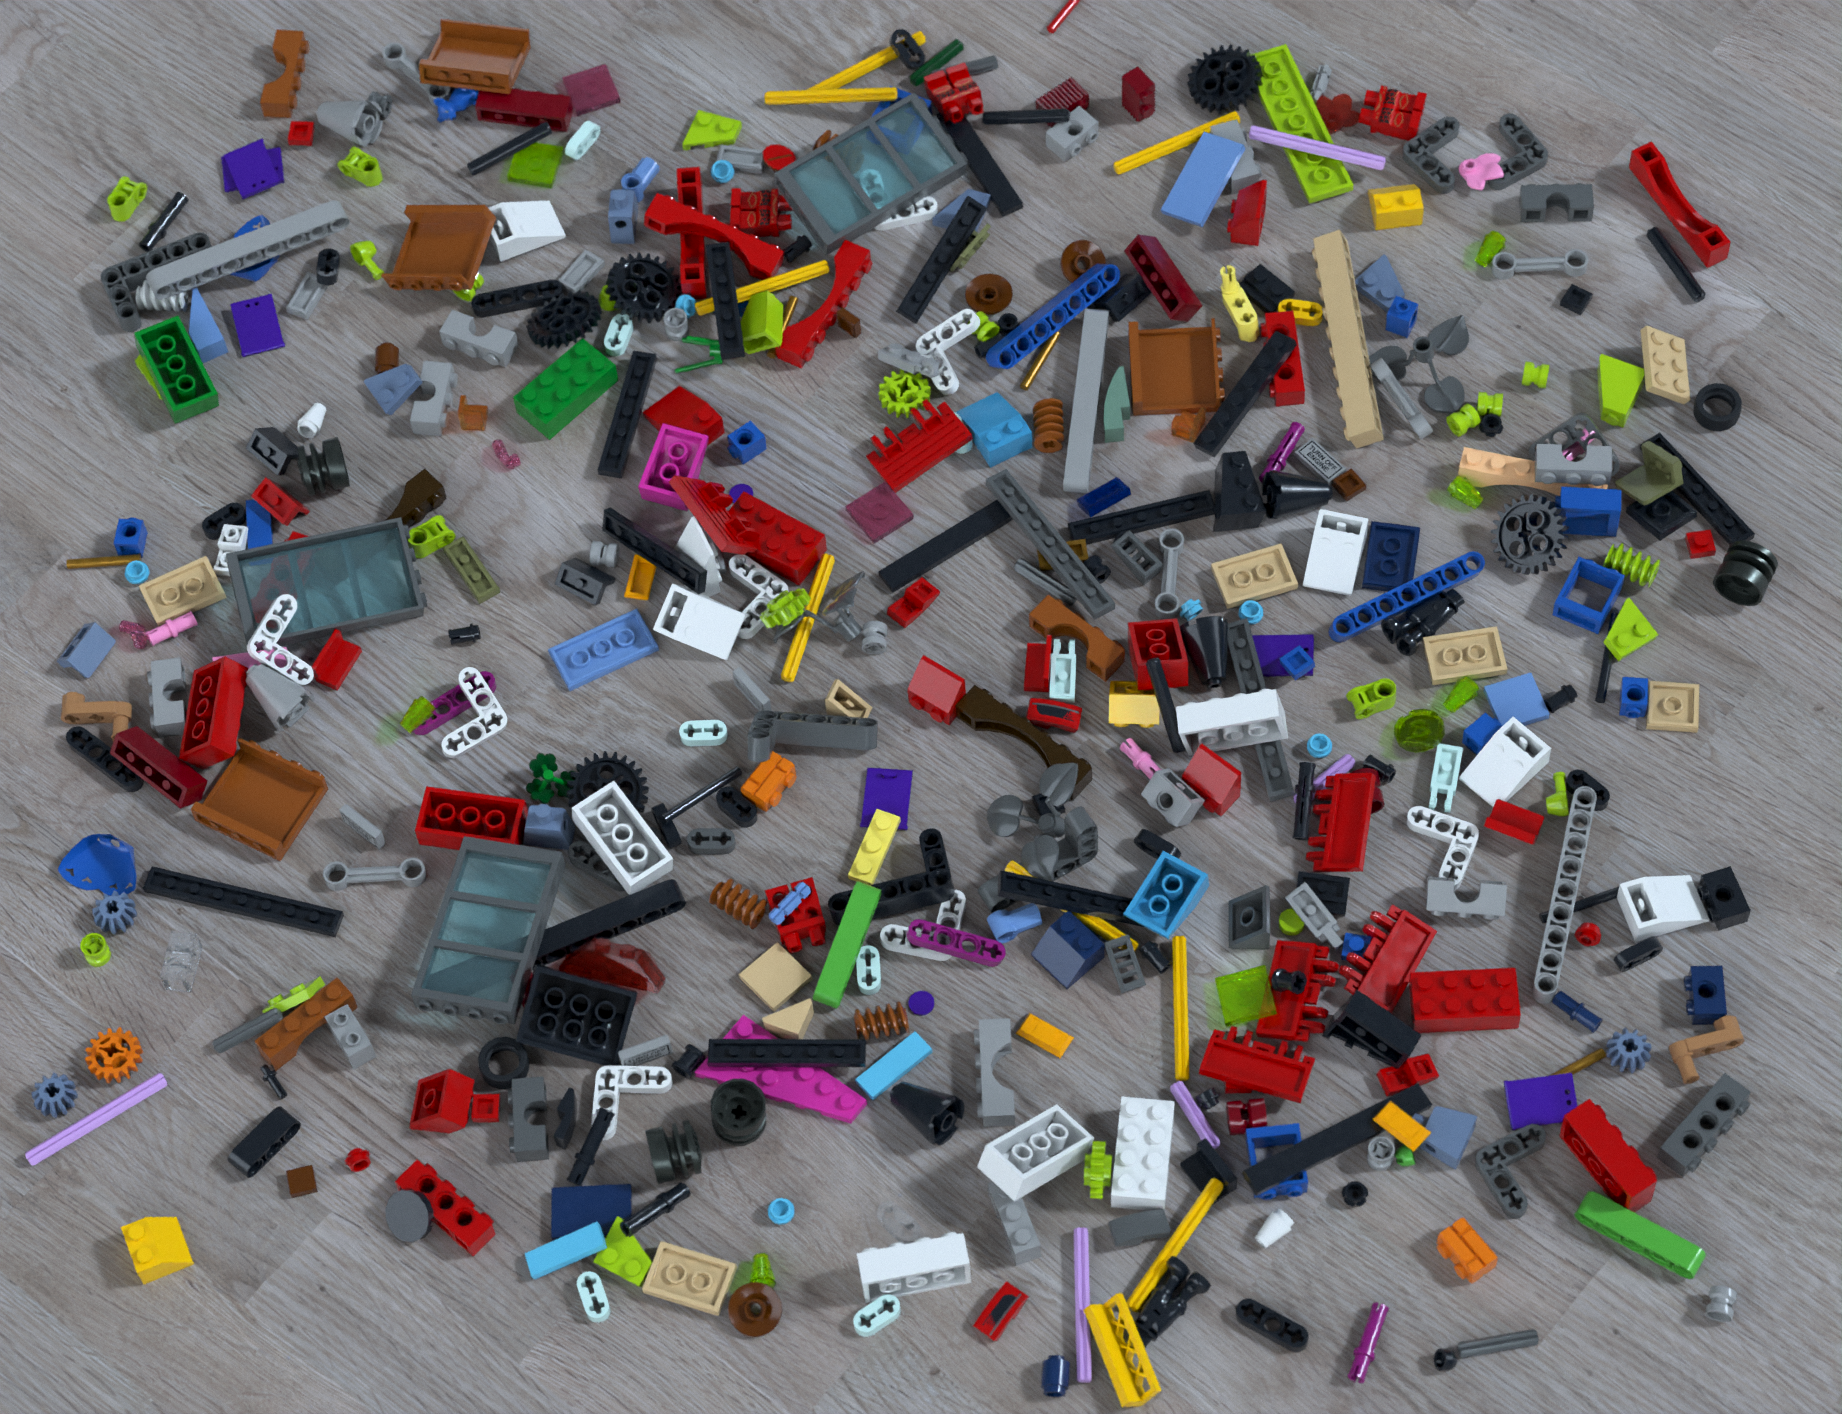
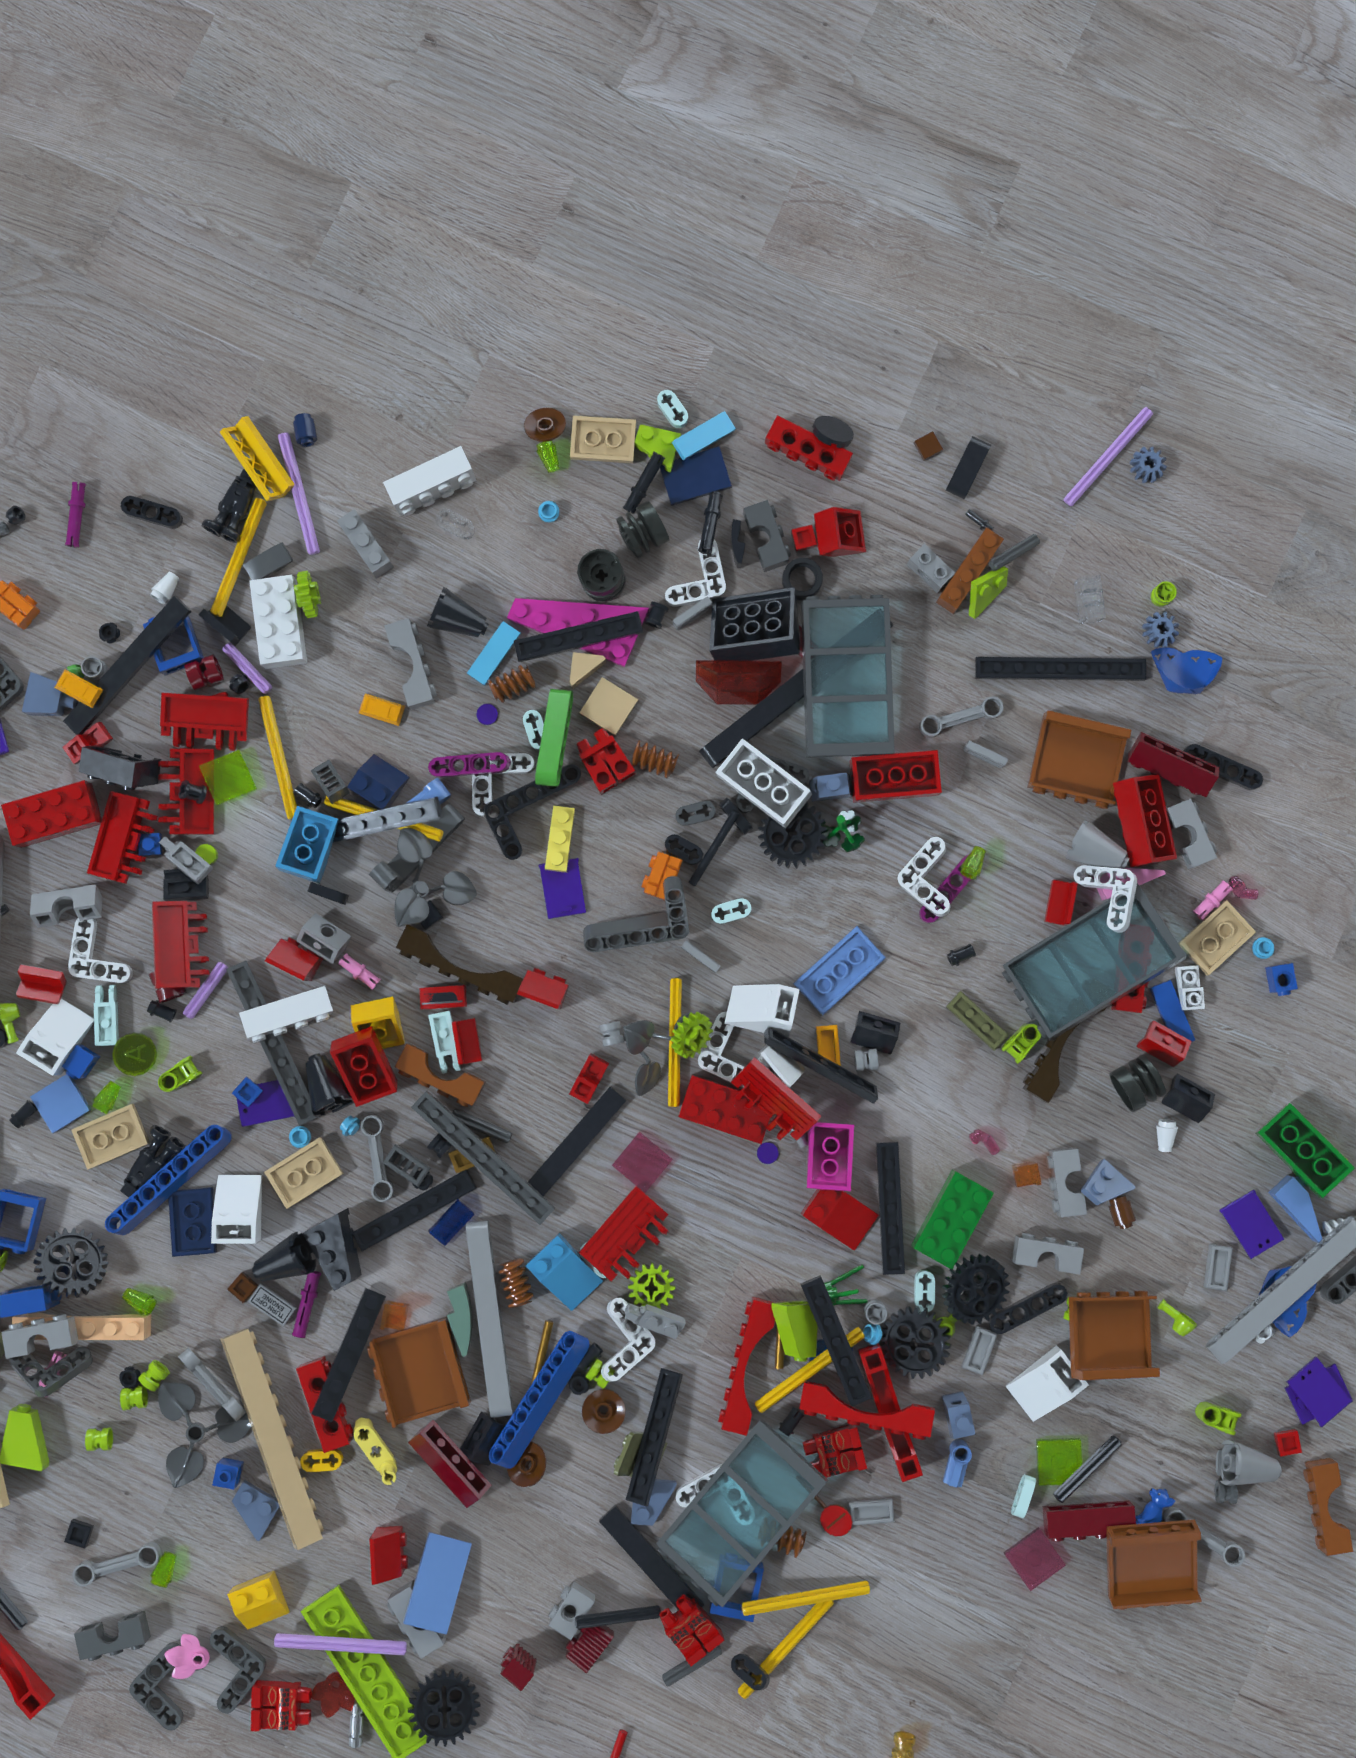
camera: 160 degrees right, 25 degrees up
(78, 711) = (1266, 804): medium nougat beam -> none
(87, 649) = (1277, 863): sand blue panel -> none
(102, 561) = (1296, 953): pearl gold bar -> none
(114, 1055) = (1114, 499): orange gear -> none
(156, 1247) = (1020, 362): yellow slope -> none
(222, 517) = (1210, 1020): black beam -> none
(331, 267) = (1214, 1297): black beam -> none
(358, 1160) = (890, 472): red plate -> none
(711, 131) = (908, 1537): lime wing -> none
(722, 171) = (884, 1492): medium azure plate -> none
(746, 434) = (776, 1212): blue brick -> none
(789, 903) = (610, 760): medium blue axle -> none
(844, 702) = (615, 962): tan slope -> none
(849, 322) = (721, 1350): reddish brown tile -> none
(874, 1310) = (449, 442): light aqua beam -> none
(936, 62) = (720, 1666): dark green axle -> none
(1000, 1311) = (358, 472): red slope -> none
(1035, 1152) = (356, 591): white brick -> none
(1165, 703) = (344, 1016): black axle -> none
(1169, 145) = (474, 1625): yellow axle -> none
(1250, 920) = (237, 845): dark grey slope -> none
(1265, 289) = (358, 1478): black plate -> none
(1304, 788) = (216, 985): black pin -> none
(1319, 746) = (216, 1021): medium azure plate -> none

